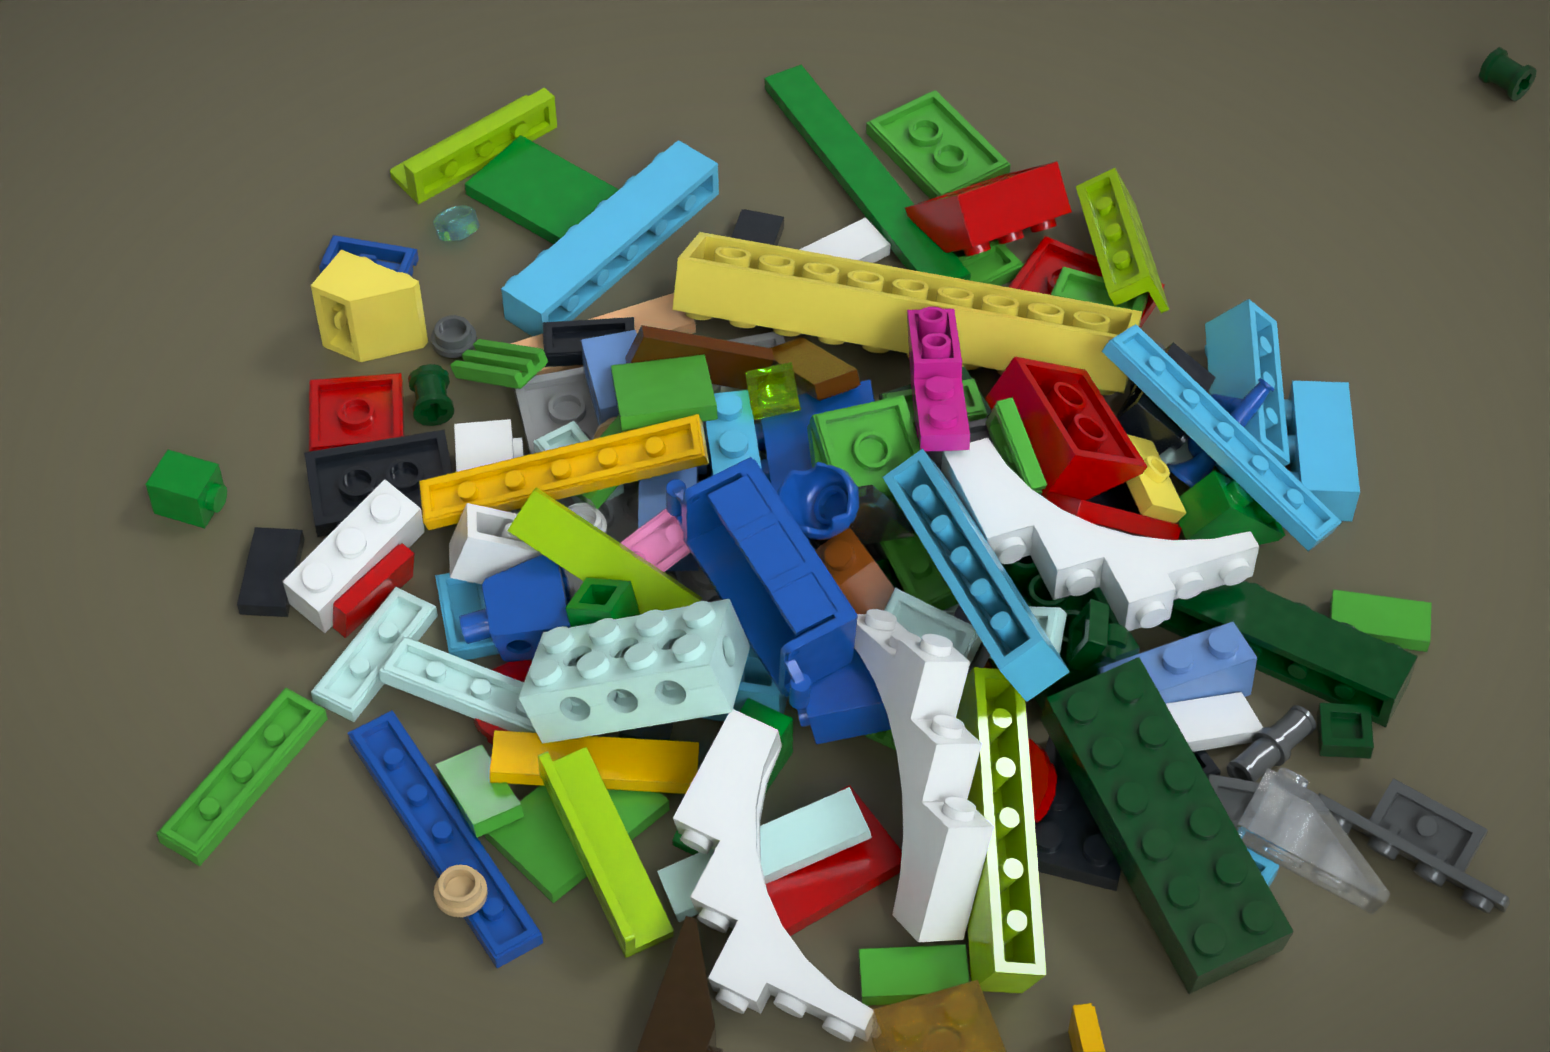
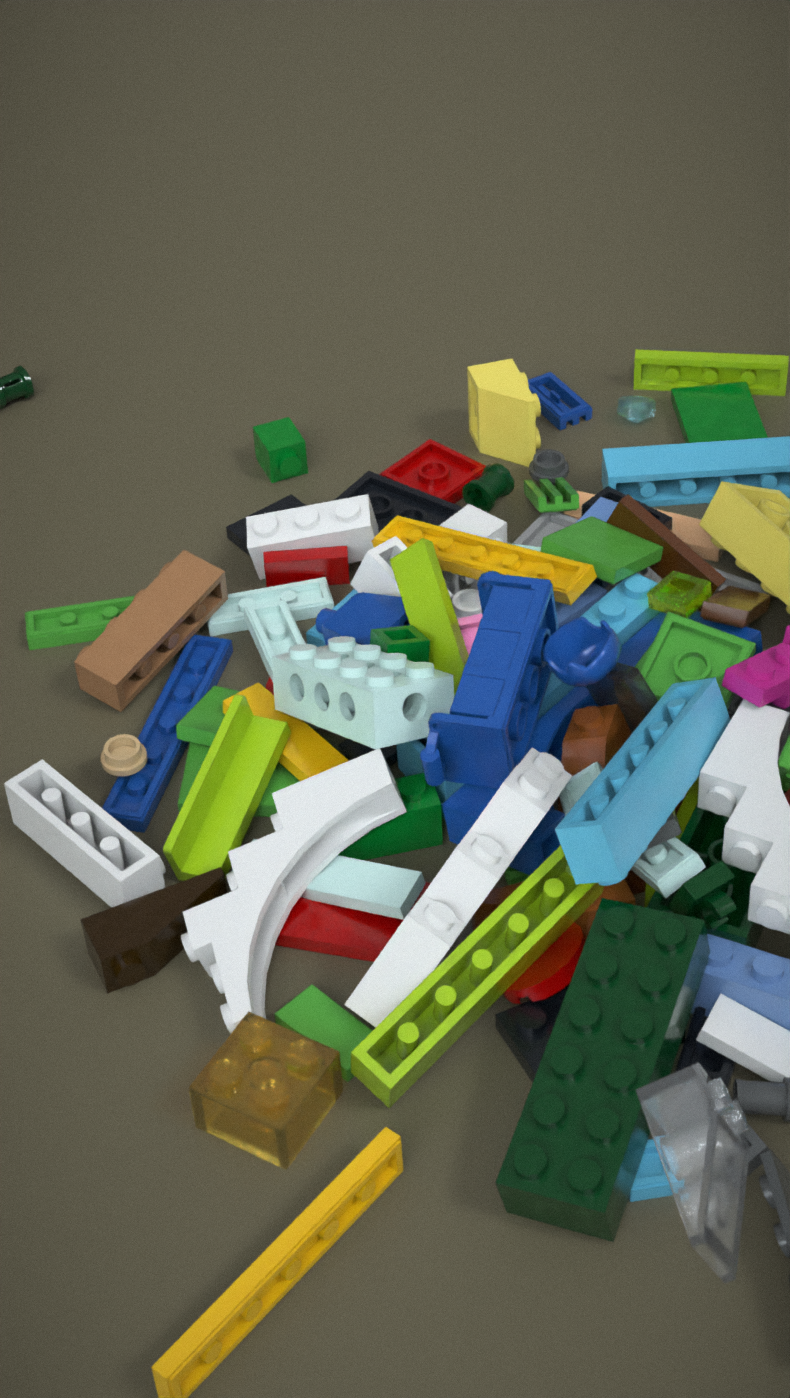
camera: 50 degrees right, 10 degrees down
(328, 756) = (151, 630): none -> medium nougat brick
(531, 988) = (83, 836): none -> white brick

